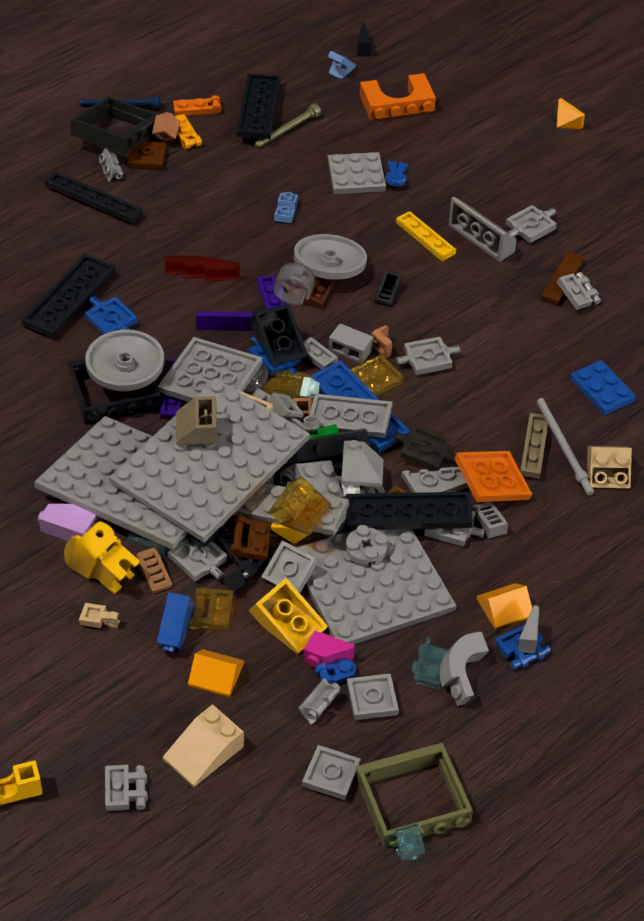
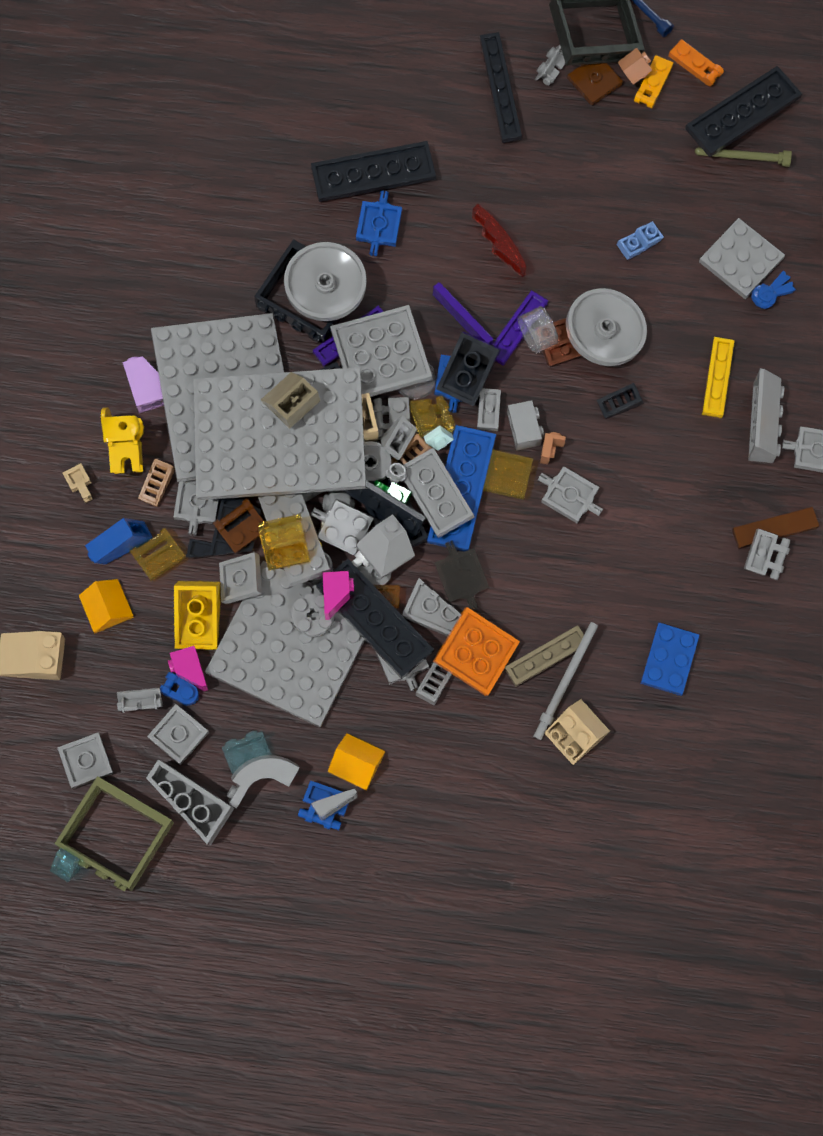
camera: 50 degrees right, 25 degrees up
(366, 511) = (336, 591): none -> dark pink slope
(437, 721) = (194, 803): none -> light grey wedge

